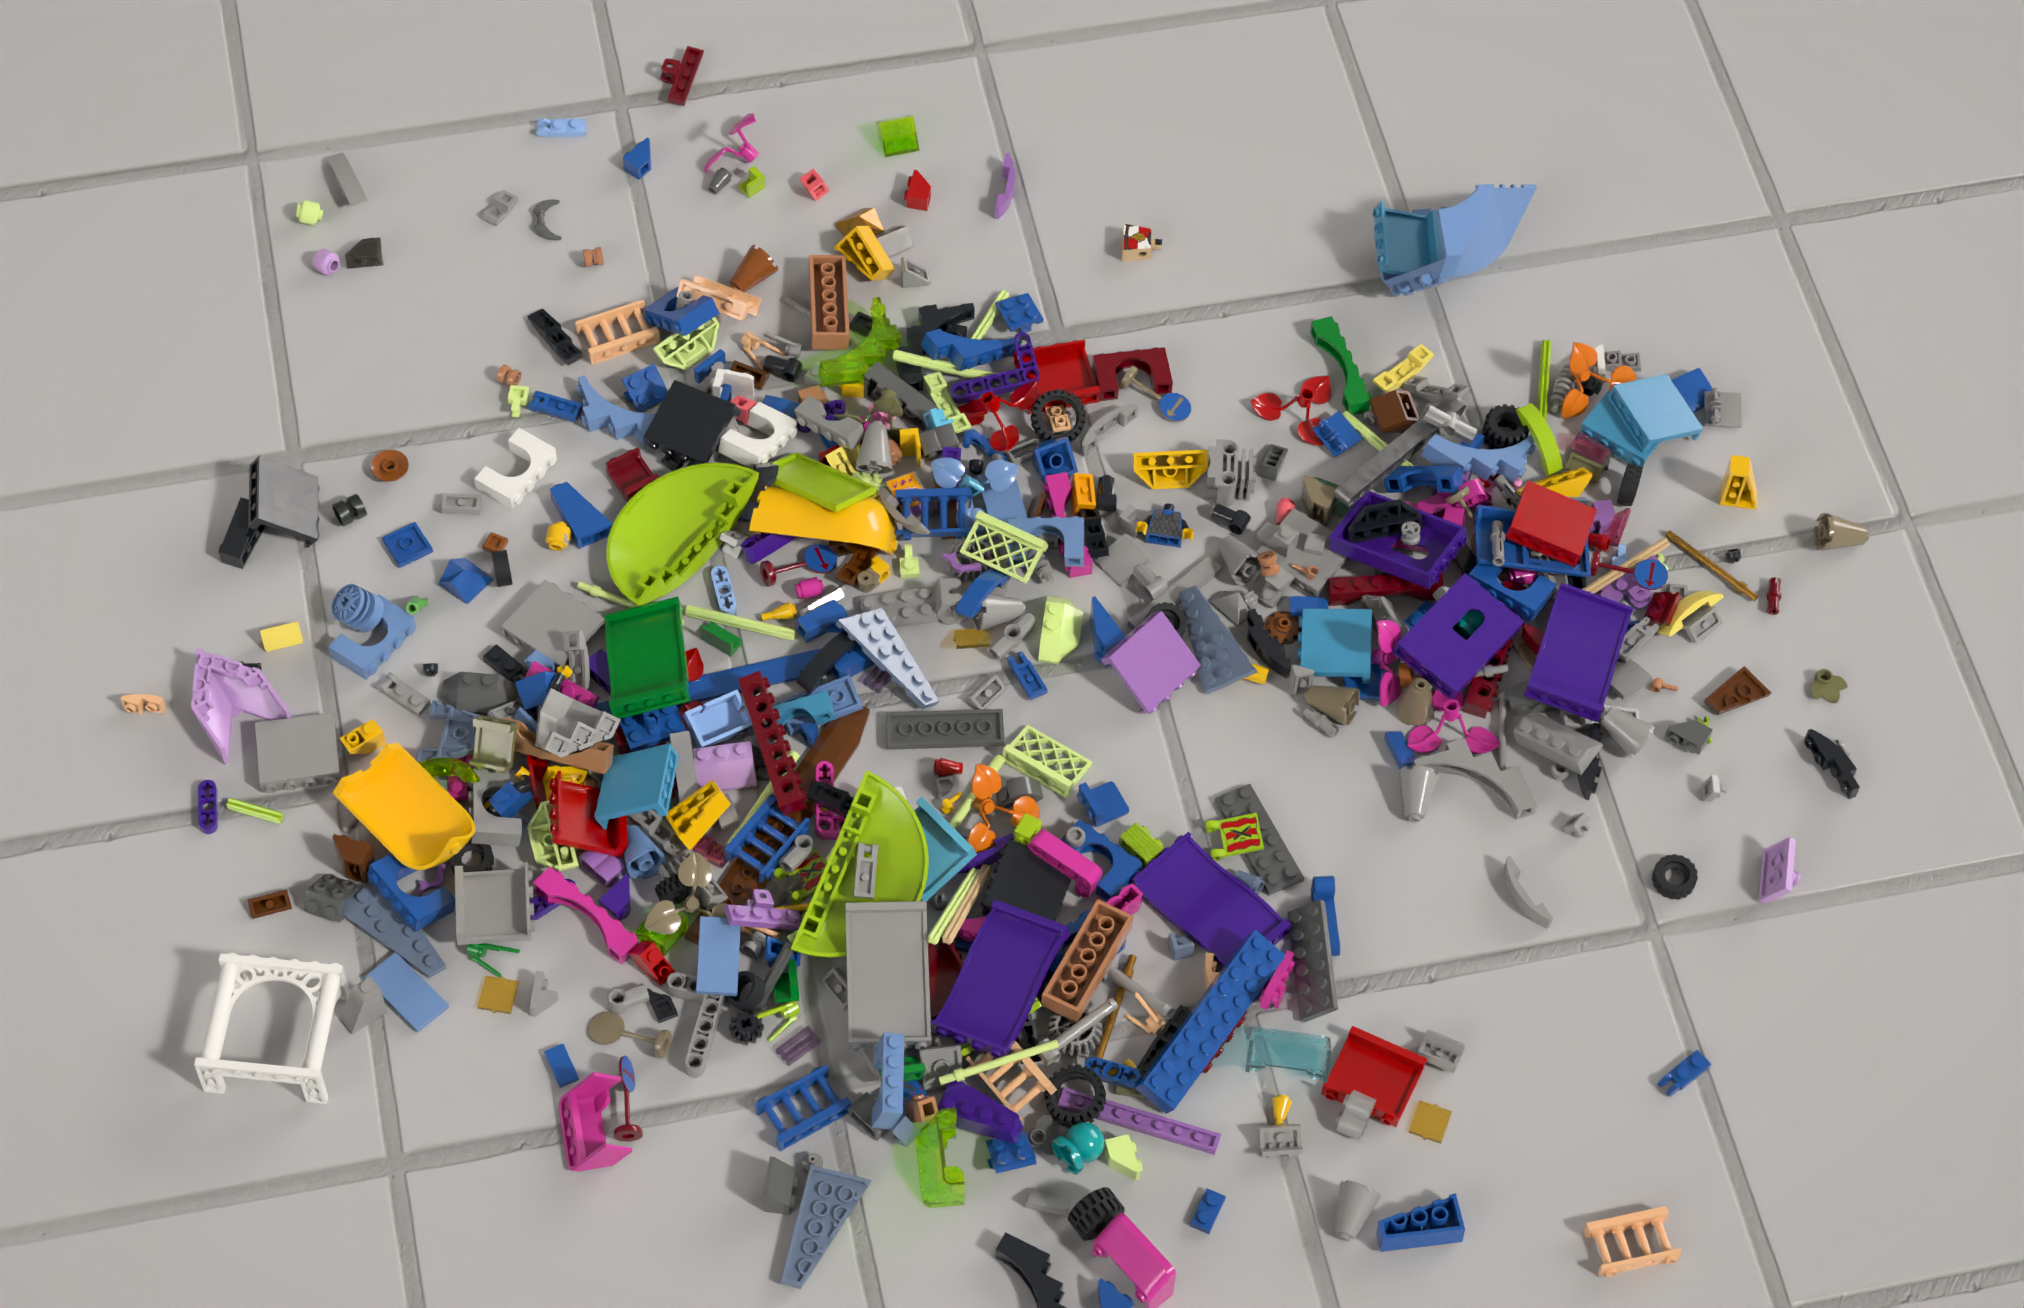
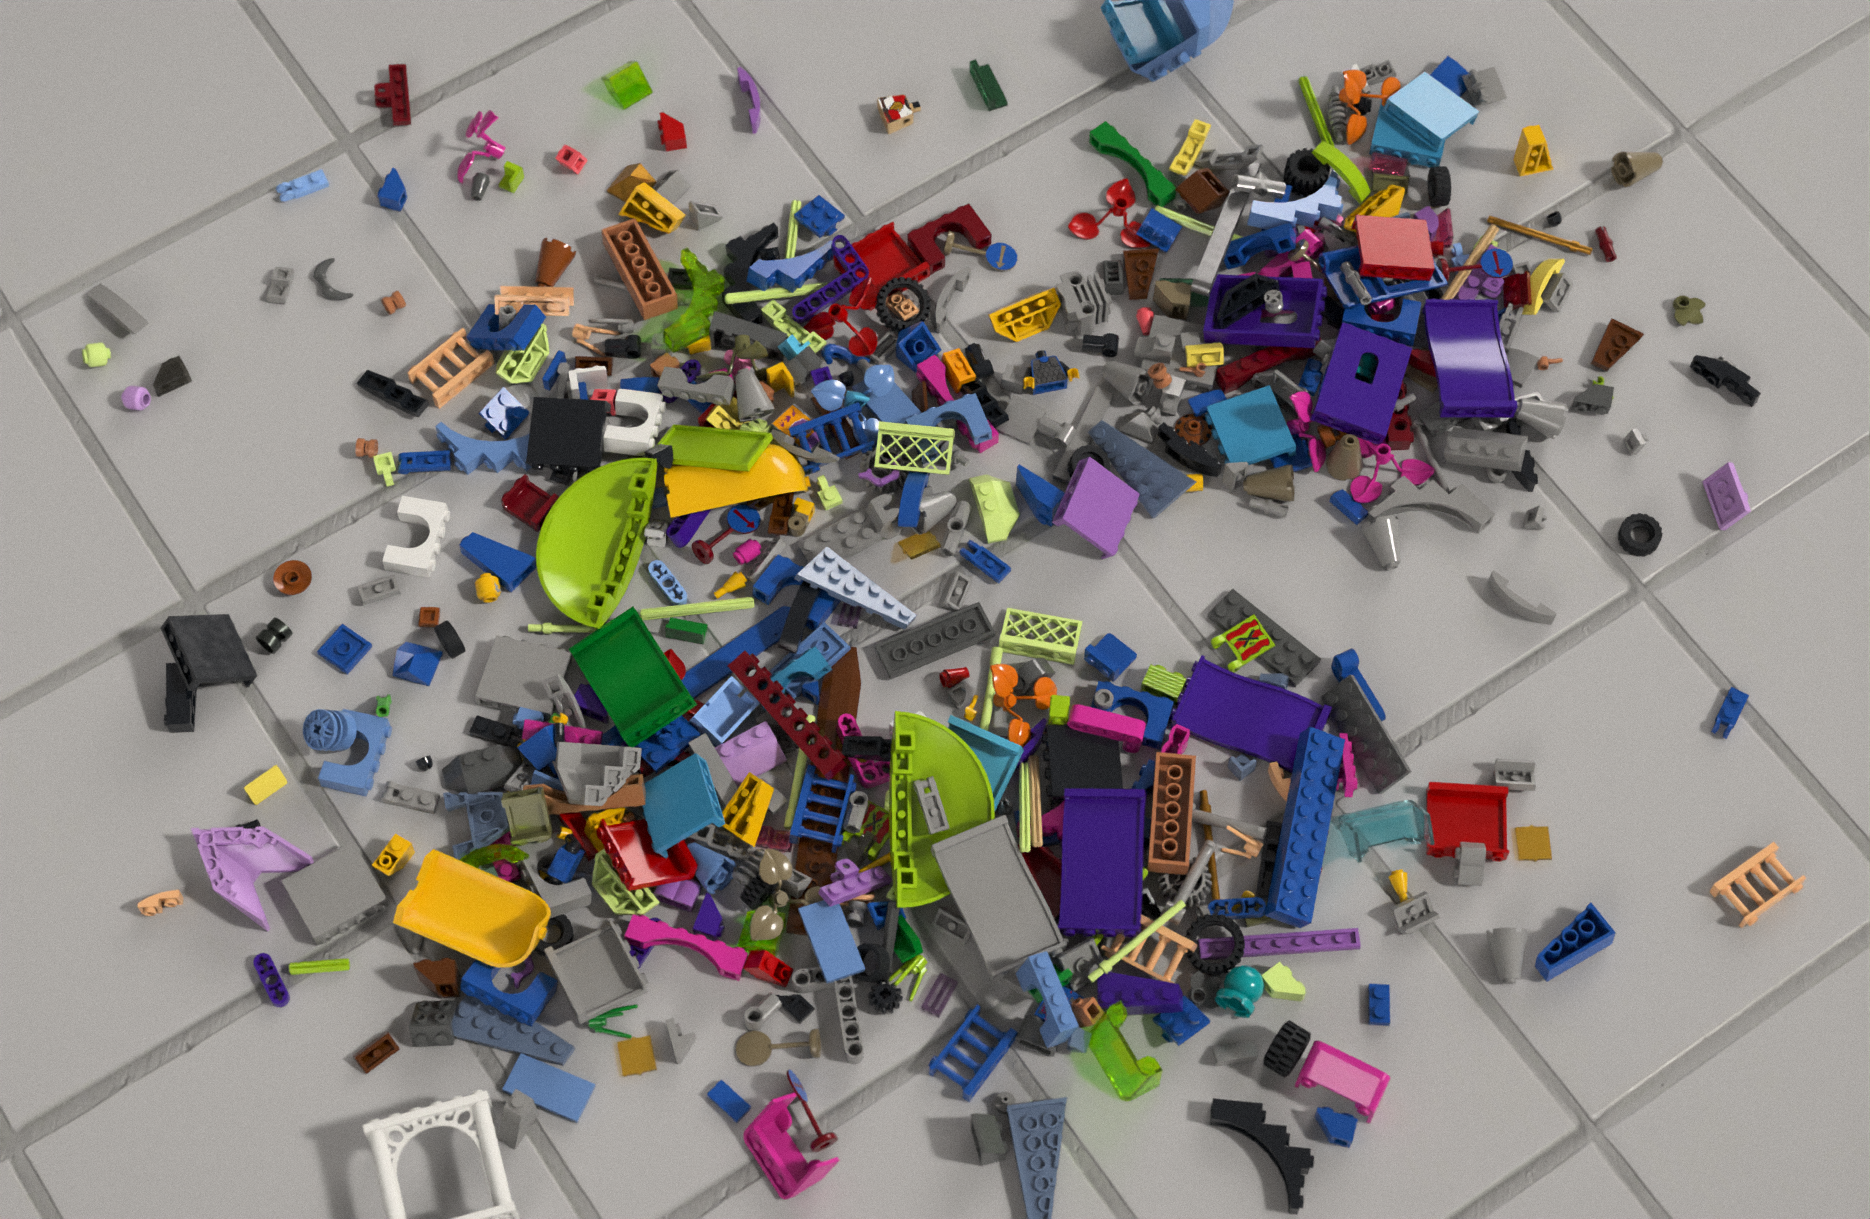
camera: 20 degrees left, 5 degrees up
(1237, 248) = (987, 85): none -> clear green panel
(1301, 461) = (1139, 271): none -> reddish brown wing
(1324, 560) = (1209, 354): none -> light yellow slope

